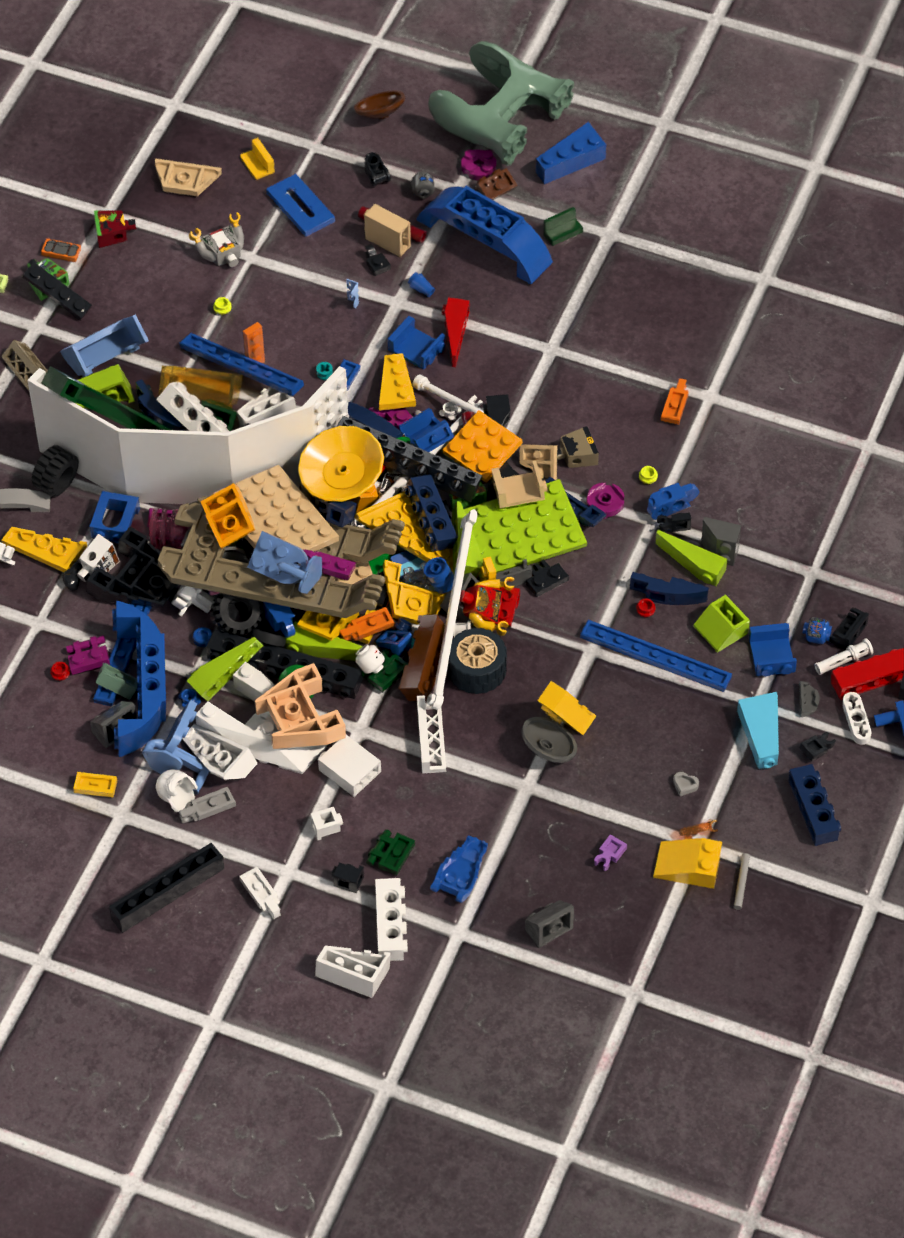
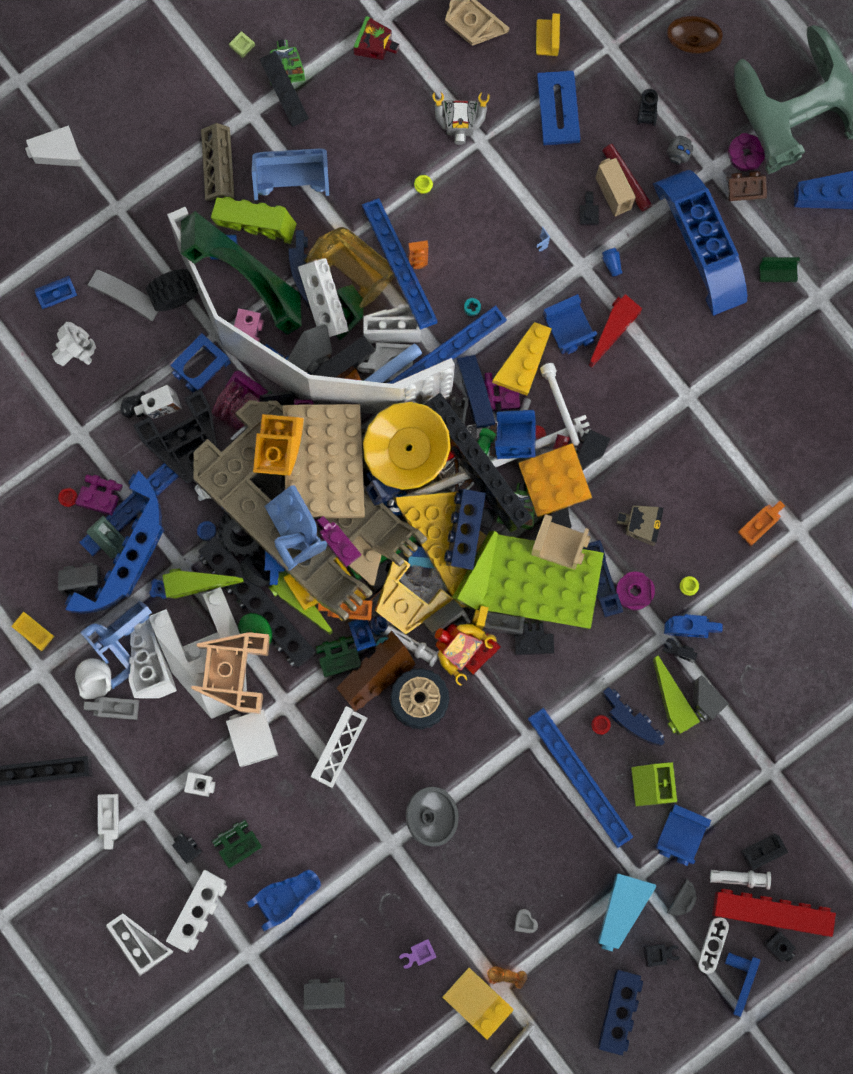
camera: 25 degrees right, 25 degrees up
(45, 548) = (128, 366): yellow wing -> none
(61, 250) = (317, 39): tile -> none
(369, 659) = (326, 647): white head -> none
(436, 699) = (489, 562): white hinge -> none
(439, 575) = (436, 596): blue wheel -> none
(450, 411) = (551, 414): white plate -> none
(544, 456) = (602, 516): tan wing -> none
(565, 708) = (462, 798): yellow wedge -> none
(817, 630) = (734, 838): blue head -> none

